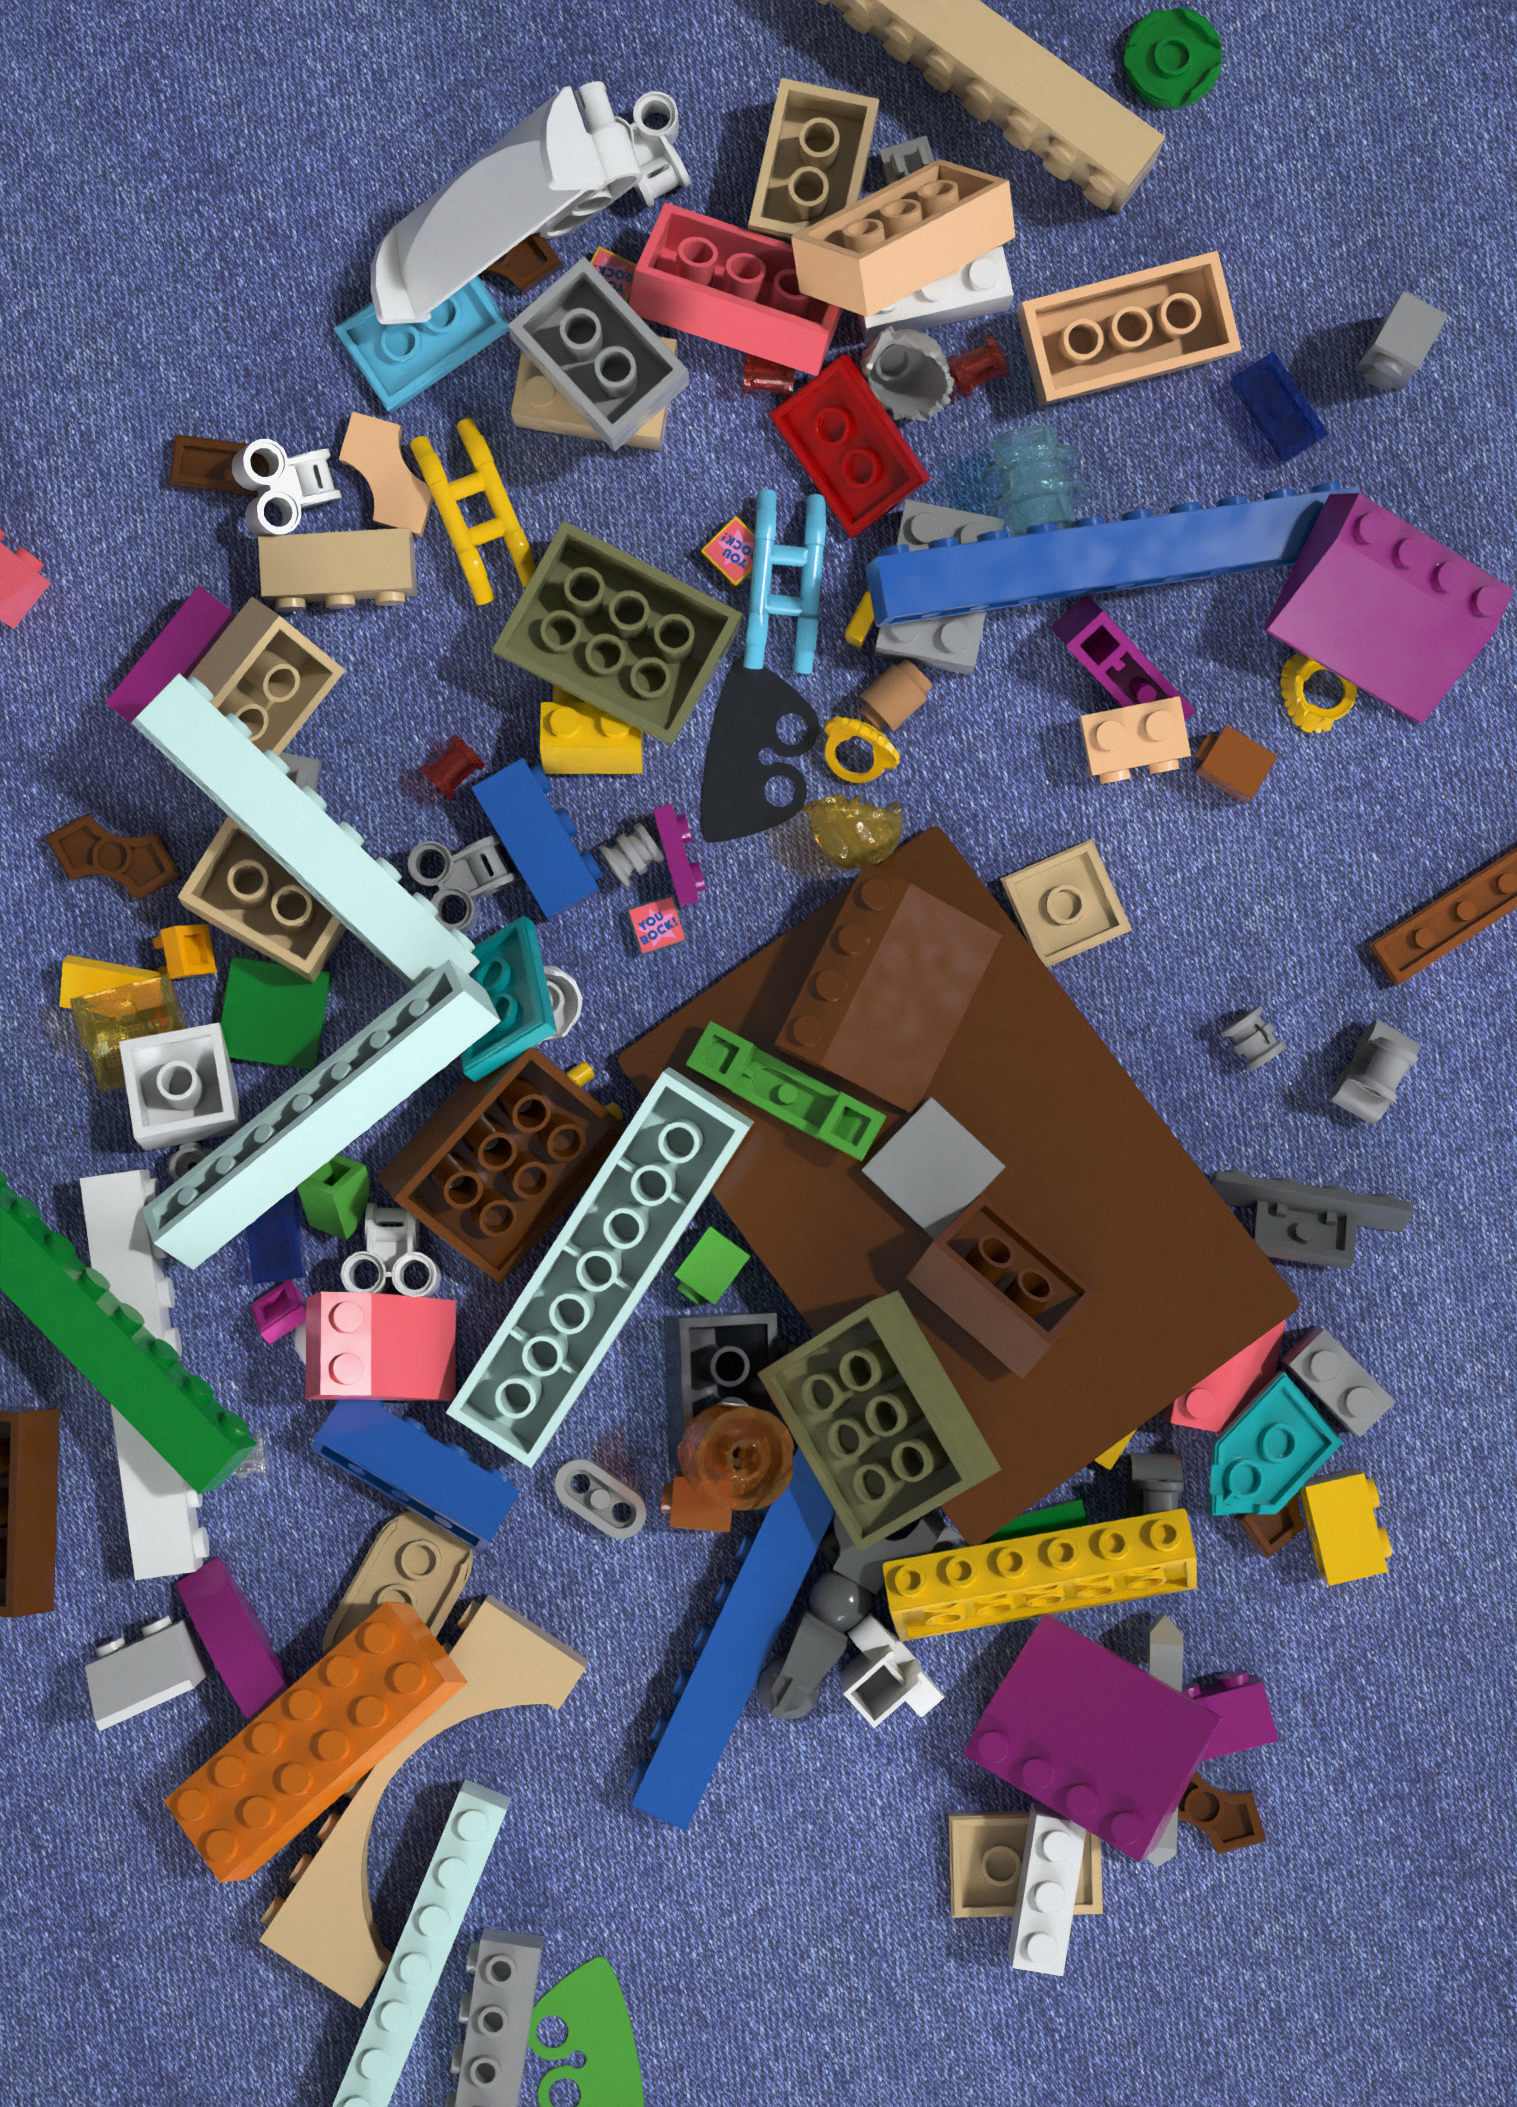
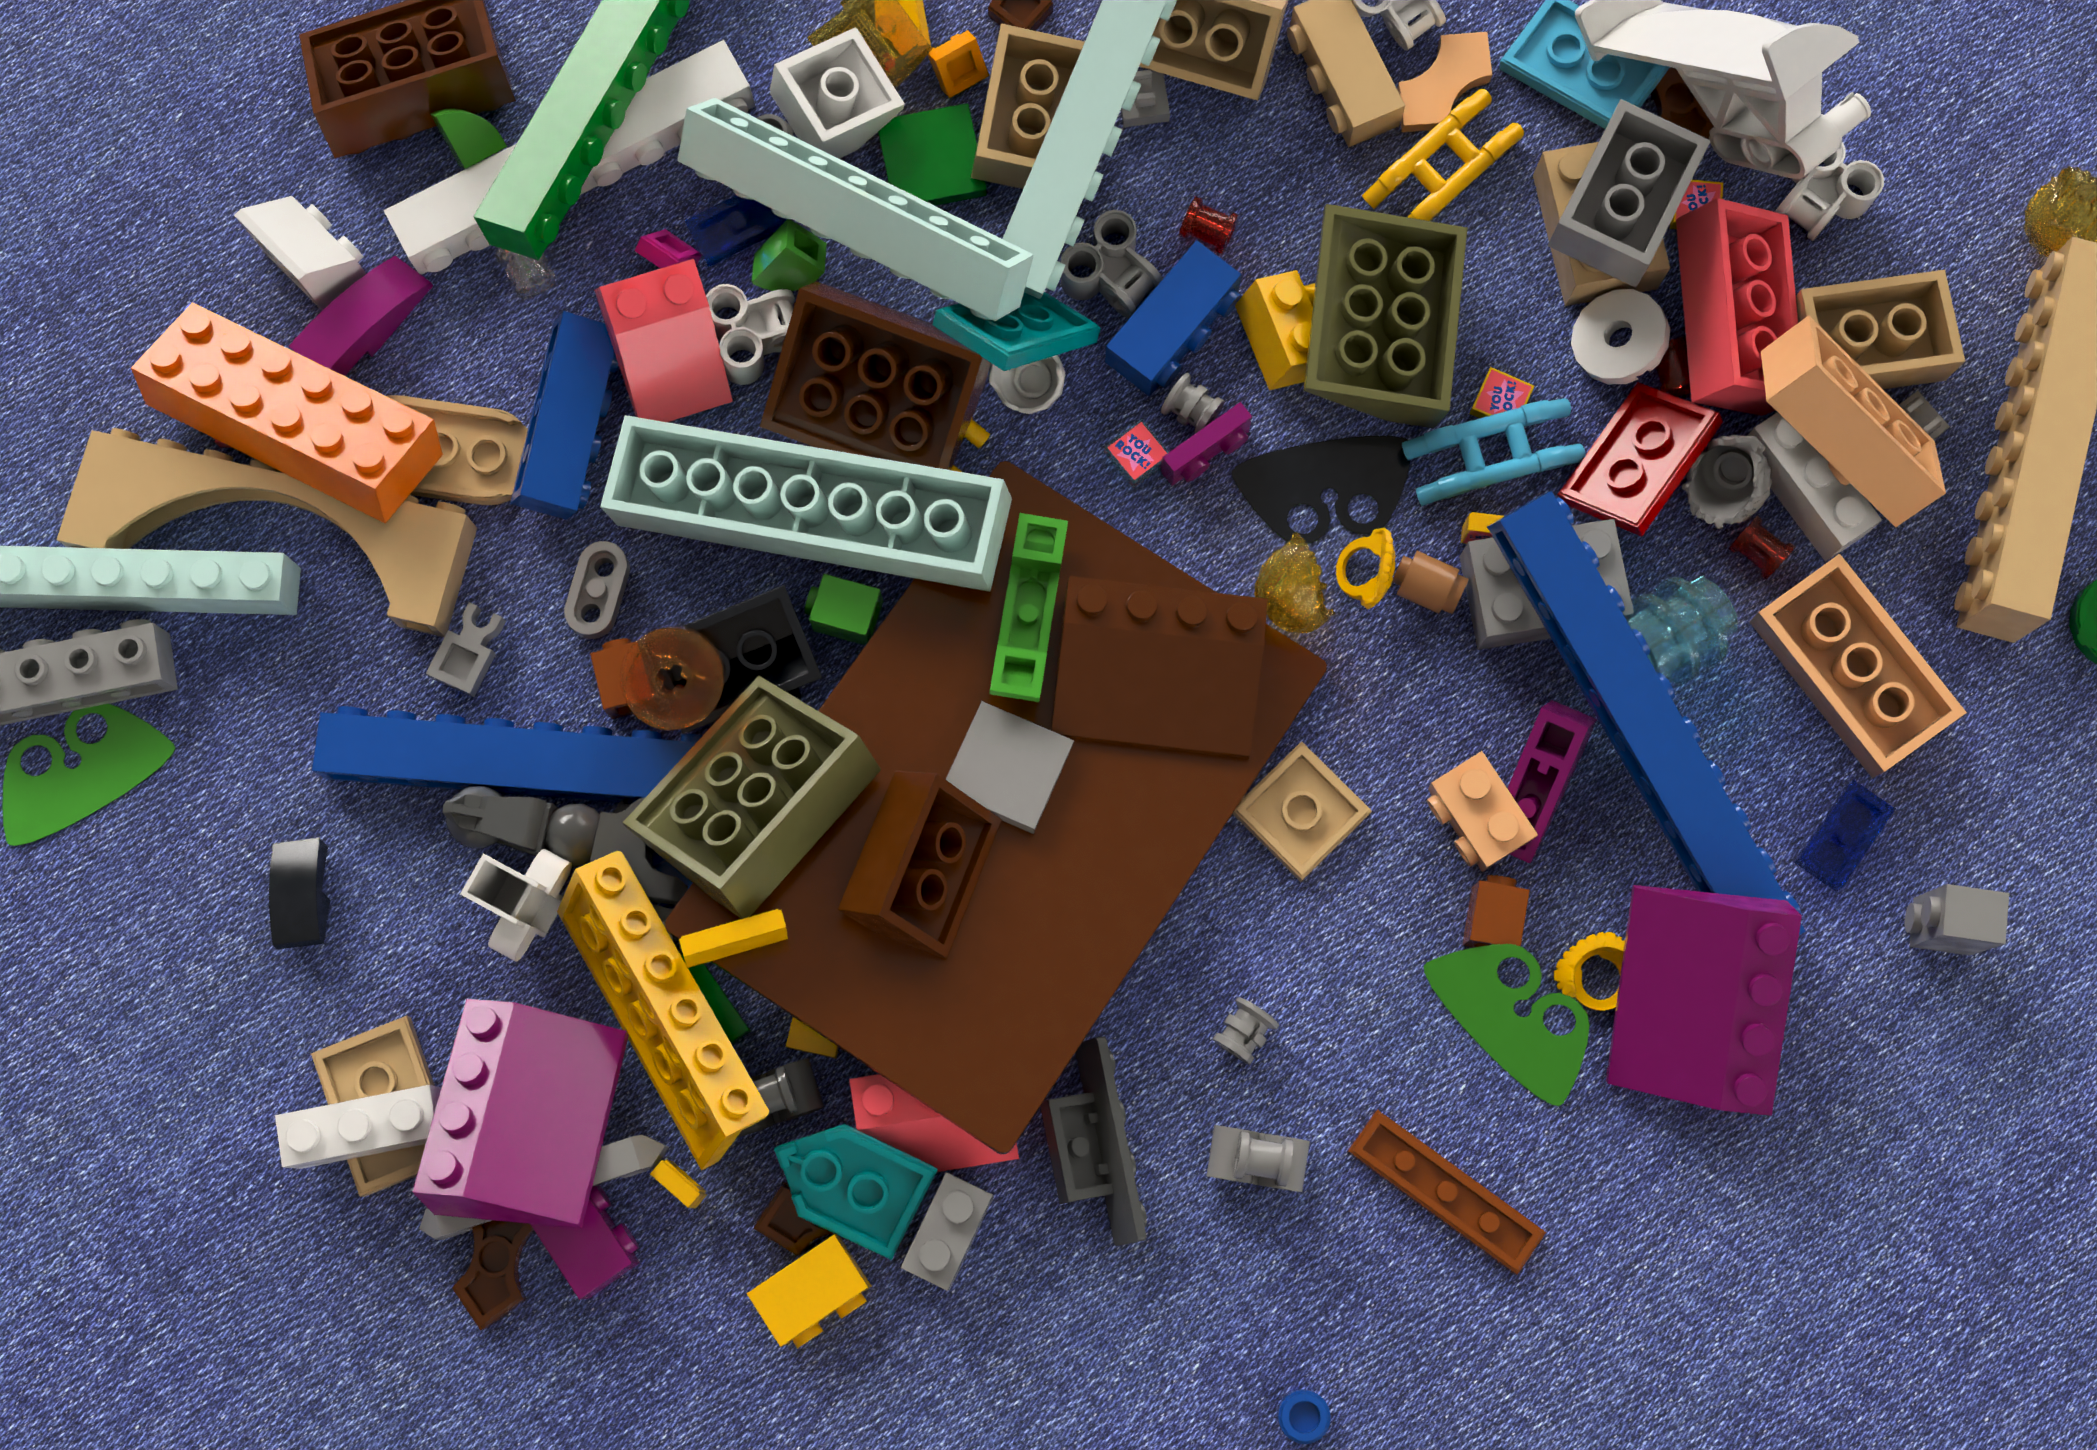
camera: 70 degrees right, 10 degrees down
(84, 1468) = (468, 135): none -> bright green brick
(621, 1649) = (464, 657): none -> light grey plate
(697, 430) = (1605, 316): none -> white tile
(795, 1883) = (295, 893): none -> black slope
(1013, 1485) = (733, 938): none -> yellow tile
(1201, 1613) = (679, 1183): none -> yellow tile
(1307, 810) = (1485, 1009): none -> bright green piece

